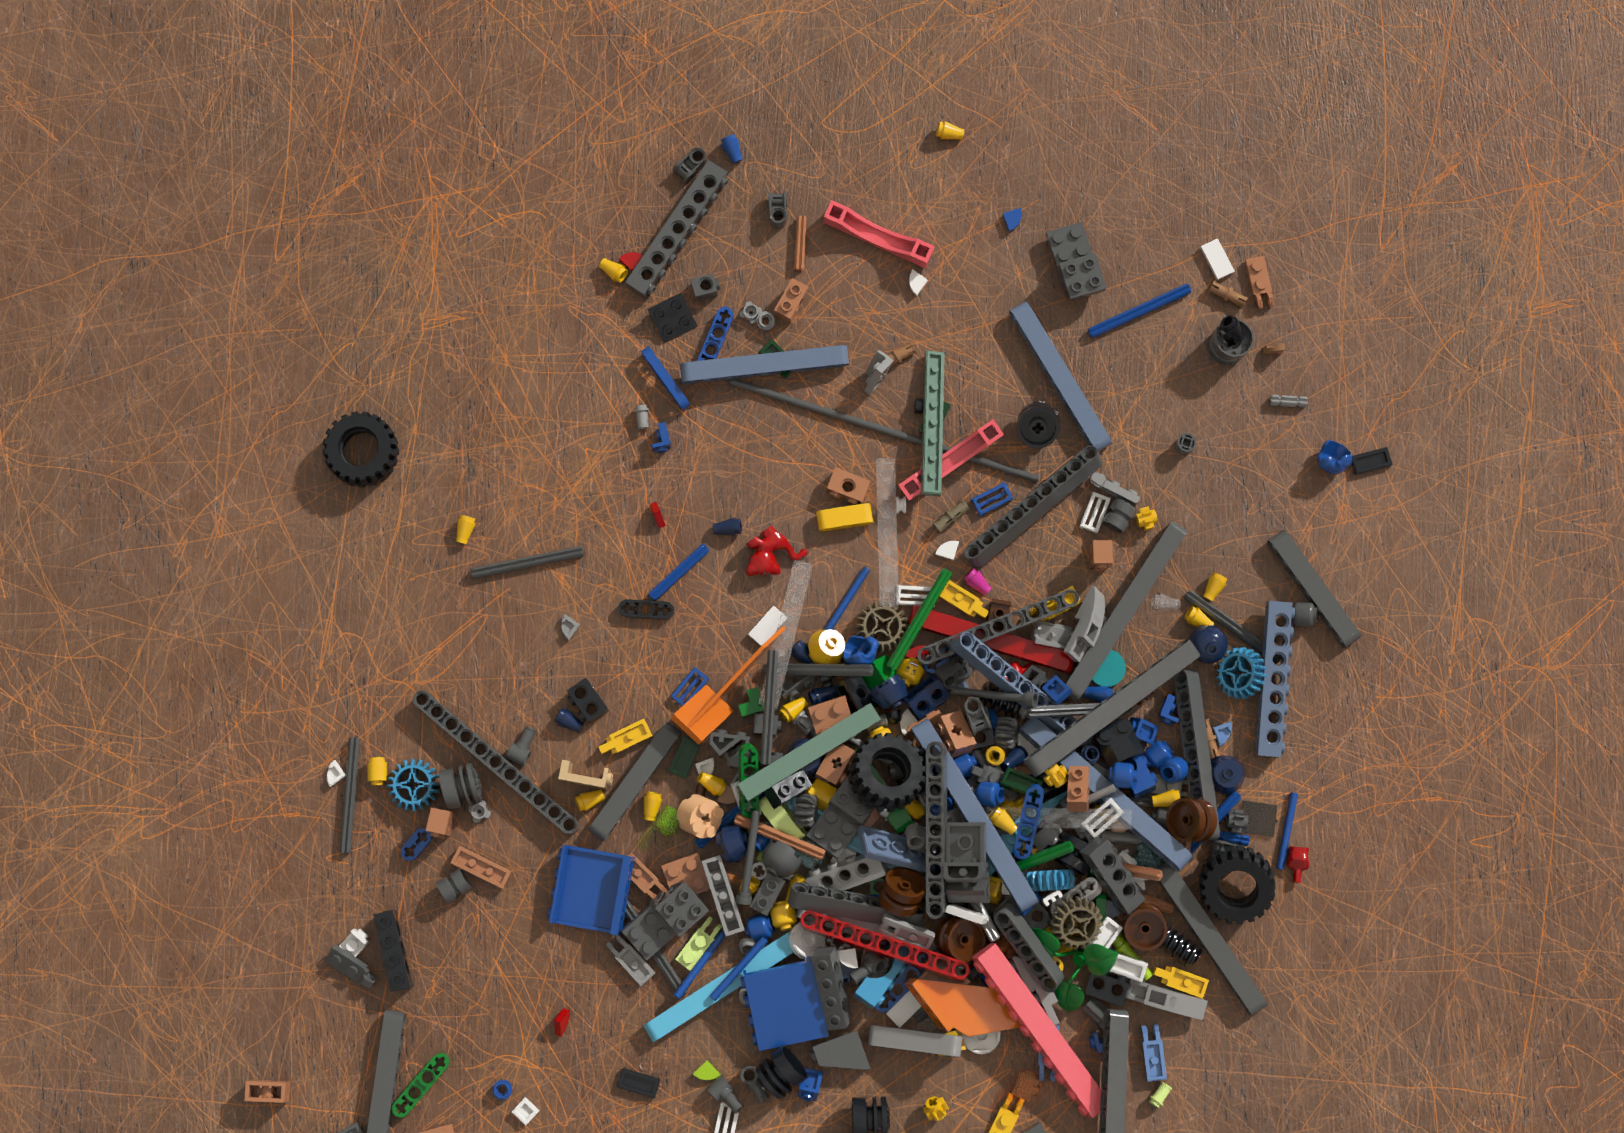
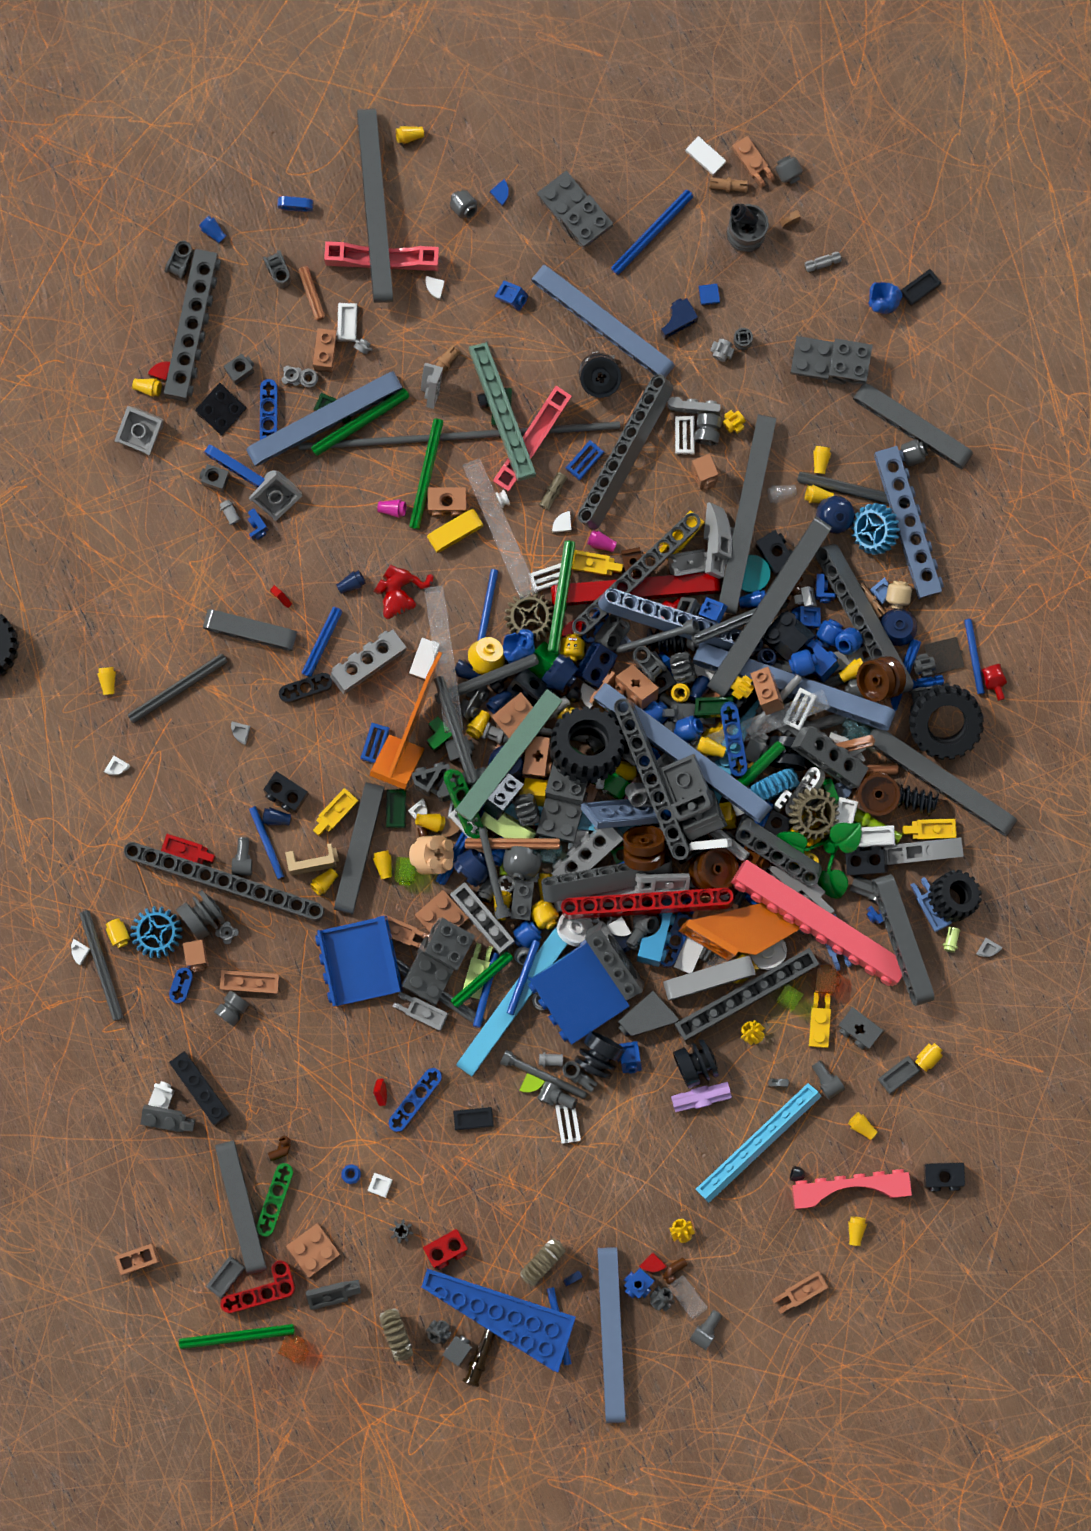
camera: 15 degrees left, 0 degrees up
(440, 613) = (116, 767): none -> white tile
(447, 1040) = (282, 1150): none -> reddish brown arm
(473, 718) = (186, 849): none -> red hinge
(550, 741) = (266, 842): none -> blue bar
(589, 307) = (139, 429): none -> light grey slope
(590, 1041) = (418, 1102): none -> blue beam
(616, 534) = (250, 630): none -> dark grey beam
(645, 386) = (218, 485): none -> dark grey brick
(687, 620) = (347, 682): none -> light grey brick
(691, 417) = (276, 494): none -> light grey slope
(696, 1041) = (509, 1059): none -> dark grey piece
(699, 954) = (482, 979): none -> green axle
(734, 1056) = (550, 1059): none -> light grey pin
(737, 870) = (485, 892): none -> dark grey cone
(796, 473) = (393, 507): none -> dark pink cone
(797, 380) = (360, 421): none -> green axle
(818, 154) = (295, 204): none -> blue beam
(822, 283) = (347, 322): none -> white tile
(827, 310) = (362, 345): none -> light grey plate
(839, 453) = (426, 473): none -> green axle
(890, 185) = (374, 206): none -> dark grey beam
(944, 1070) = (746, 994): none -> dark grey brick
(973, 216) = (463, 204): none -> dark grey head
(983, 1089) = (789, 998): none -> clear neon green brick
(985, 318) = (512, 295): none -> blue bracket
(1133, 646) = (767, 544): none -> black brick
(1136, 401) = (682, 317): none -> dark blue arch
(1150, 712) = (806, 598): none -> white tile
(1161, 446) = (722, 350): none -> light grey gear
(1169, 389) = (709, 294): none -> blue tile
(1191, 1117) = (988, 948): none -> light grey tile
(1193, 1055) = (966, 889): none -> black tyre
(1238, 743) = (899, 594): none -> tan head
(1261, 498) = (832, 361): none -> dark grey piece
(1290, 302) = (789, 169): none -> dark grey head

